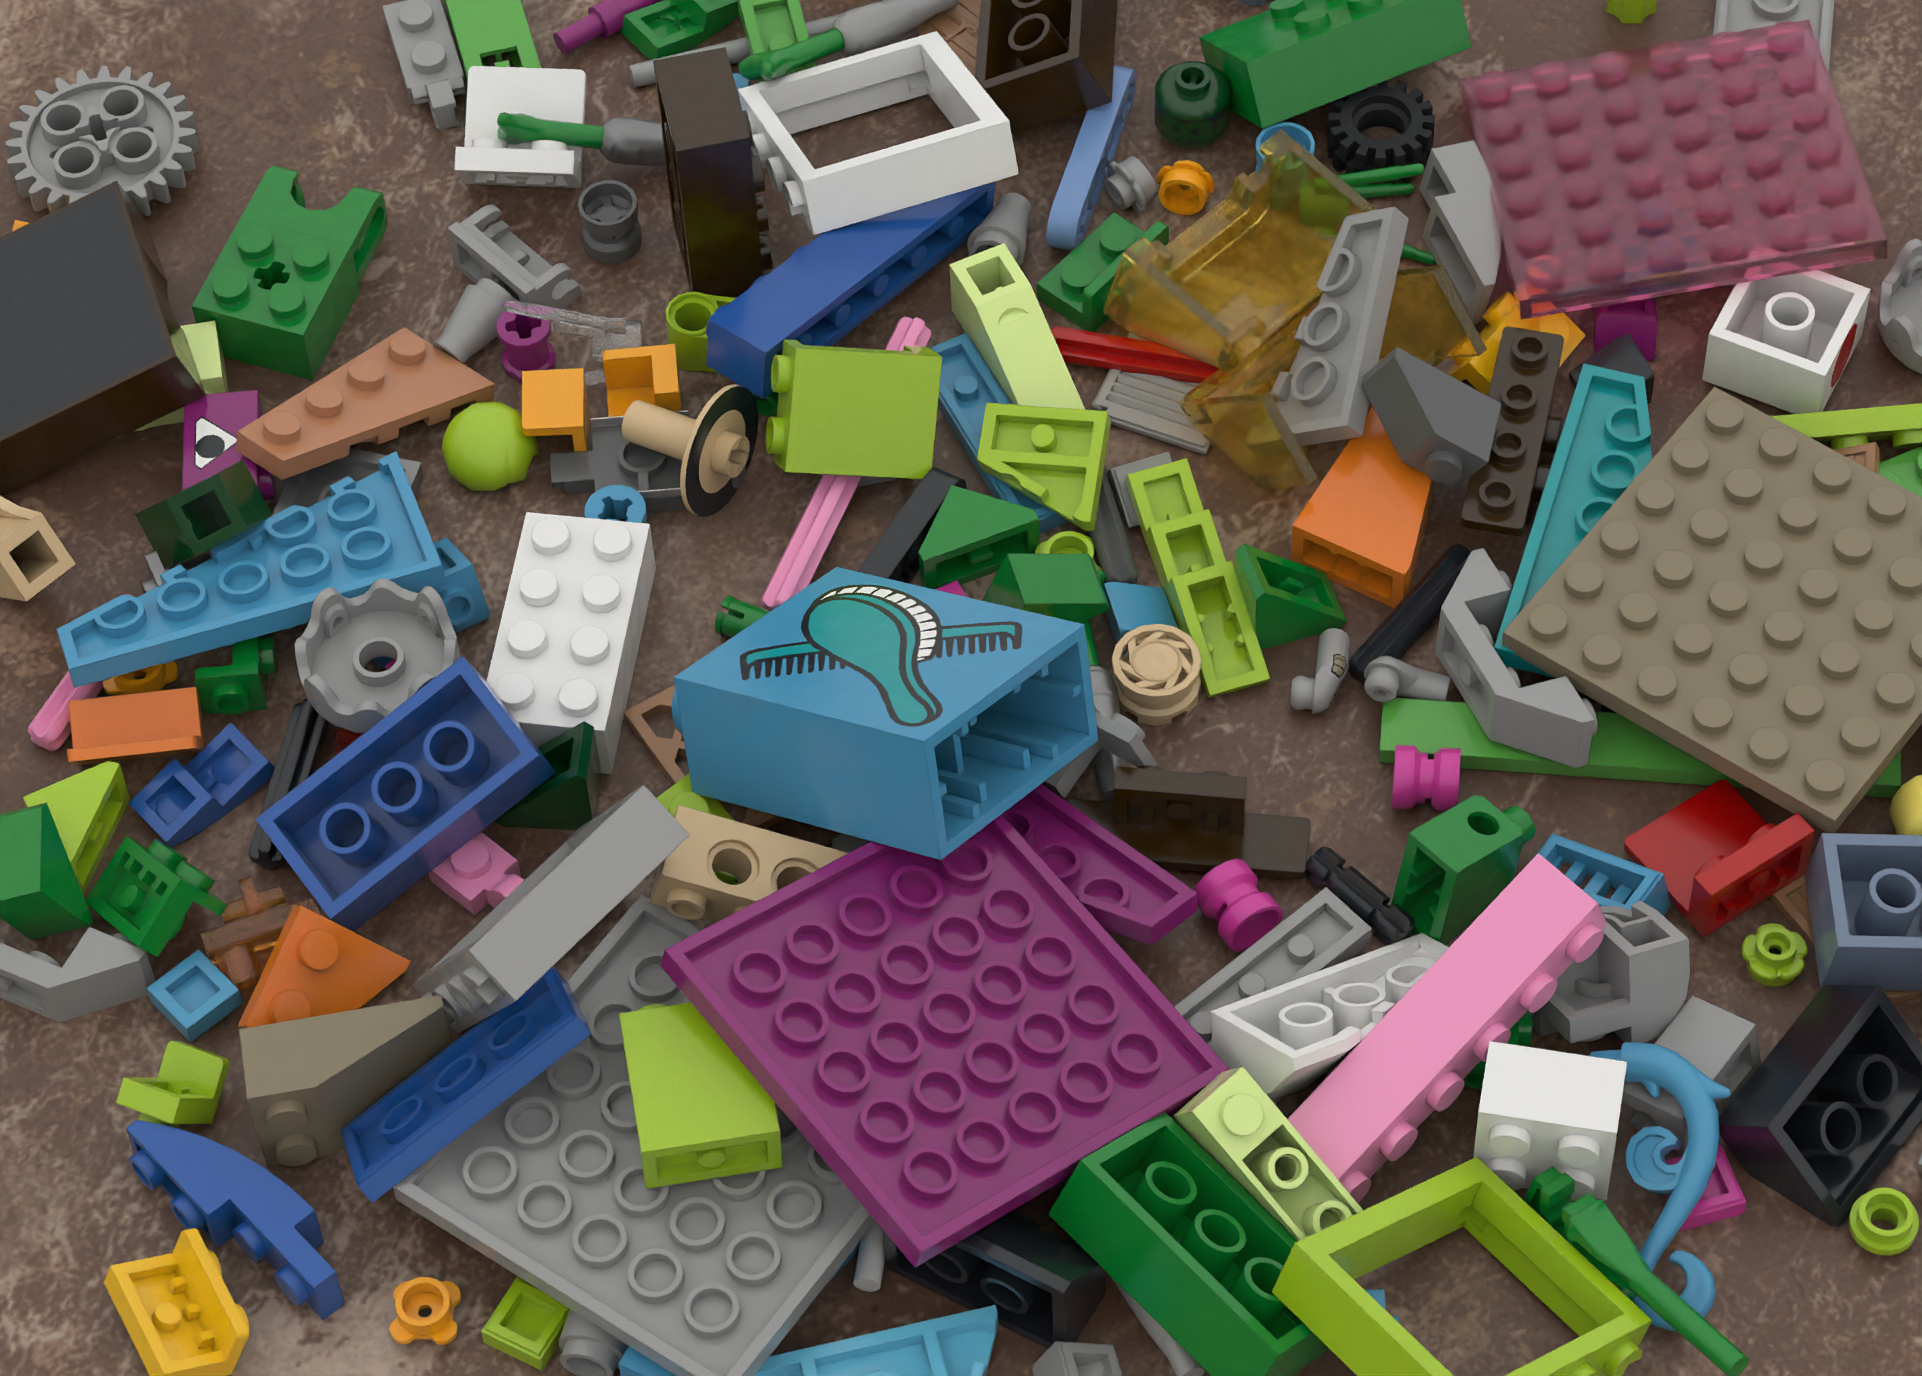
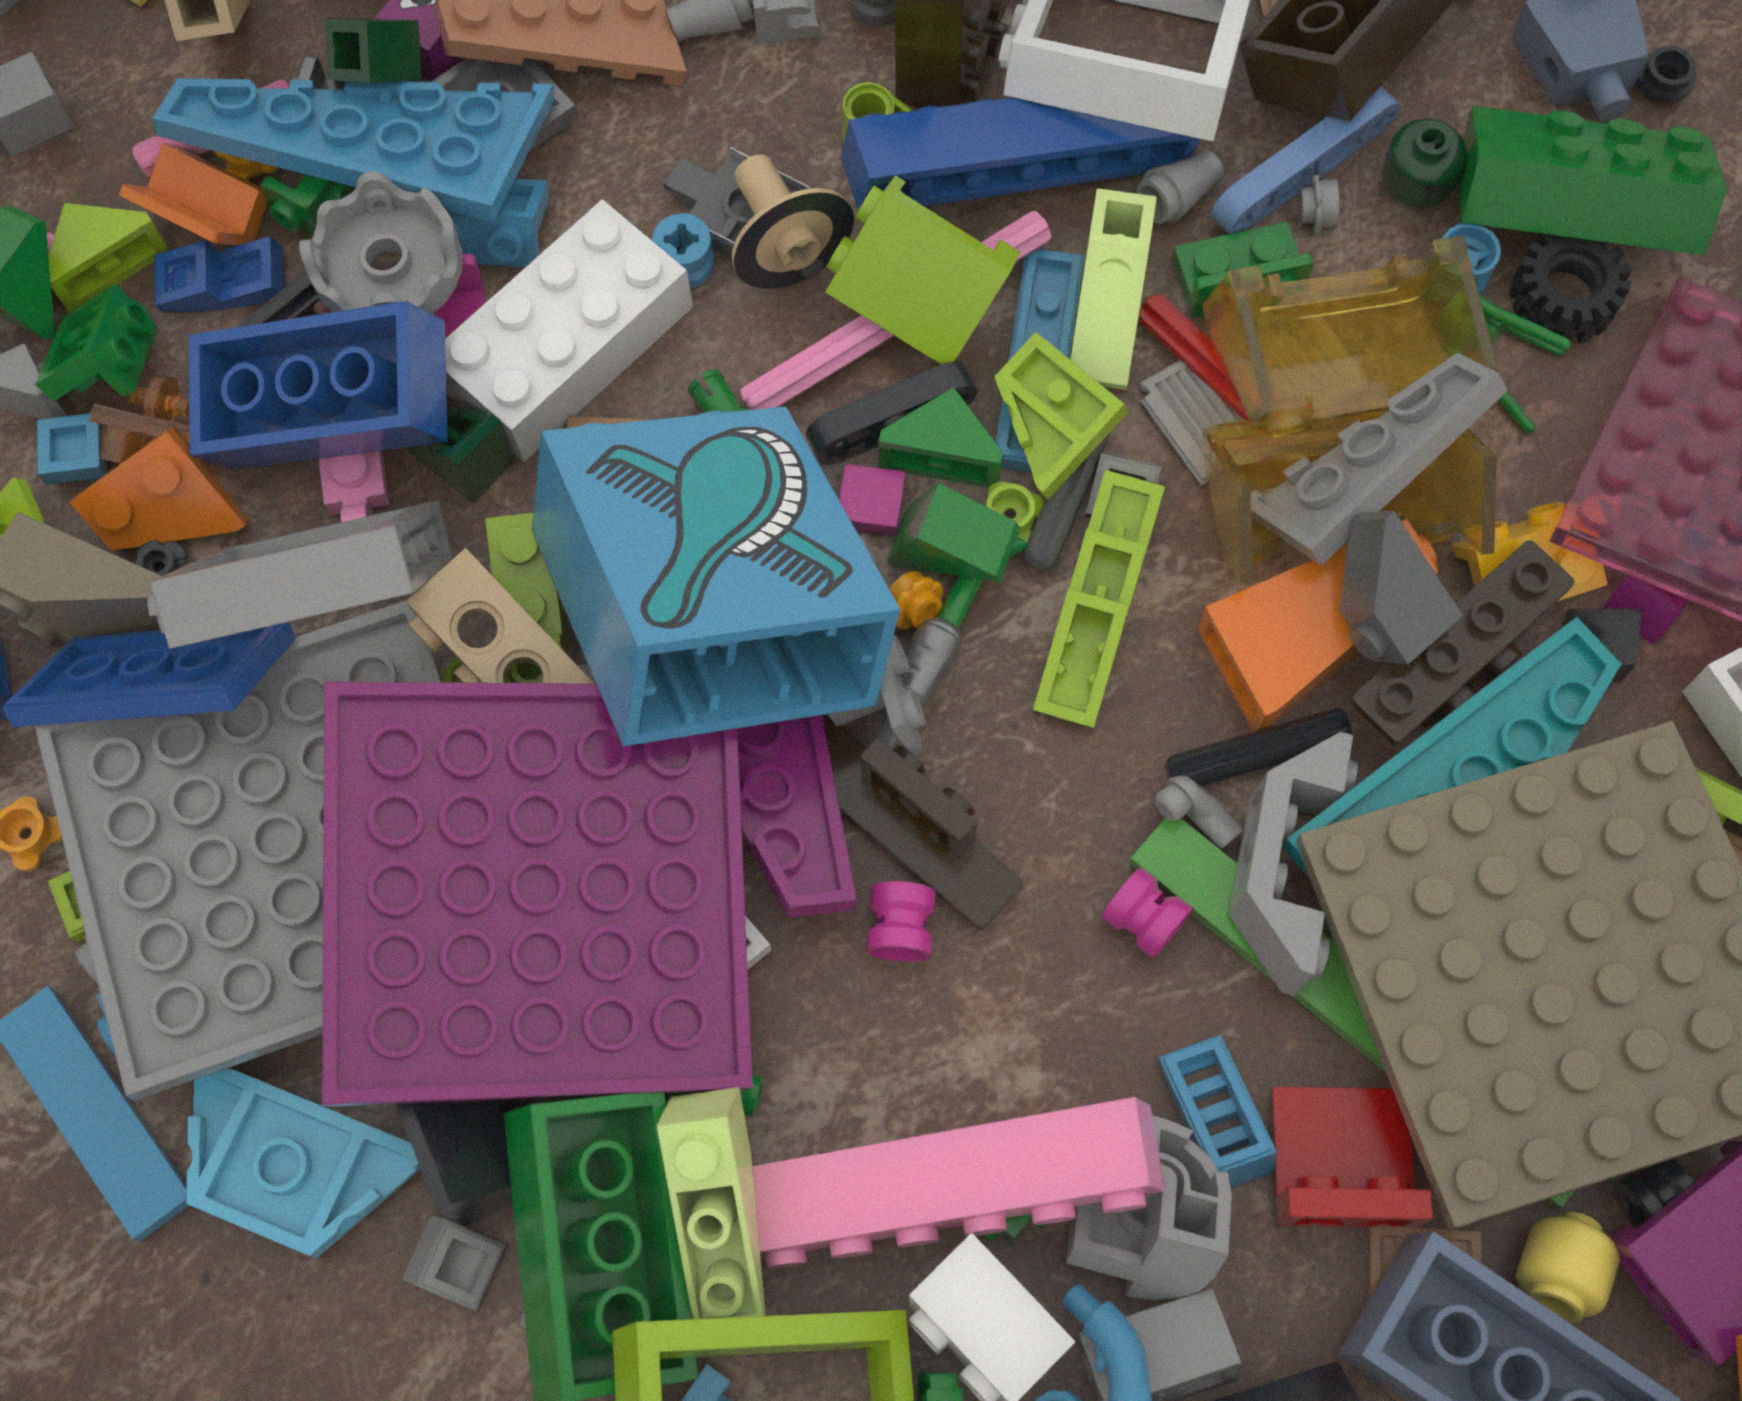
camera: 35 degrees right, 15 degrees up
(488, 447) = (642, 123): lime hair -> none
(525, 344) = (733, 45): magenta bush -> none
(556, 405) = (709, 122): light orange panel -> none
(606, 332) = (801, 92): clear plant -> none
(643, 375) = (798, 142): light orange panel -> none
(694, 1100) = (272, 813): lime panel -> none
(1135, 606) = (1029, 601): dark azure slope -> none
(1156, 673) = (1000, 663): tan wheel -> none
(1184, 187) = (1364, 233): light orange plate -> none
(1285, 597) = (1159, 665): green slope -> none
(1305, 942) = (868, 1006): light grey plate -> none
(1314, 1022) = (887, 1085): white wedge -> none
(1330, 671) = (1144, 757): light grey arm -> none
(1360, 895) = (1011, 982): black axle -> none
(1460, 865) = (1109, 1020): green torso -> none
(1462, 223) = (1574, 414): light grey slope -> none
(1771, 968) = (1307, 1293): lime plate -> none

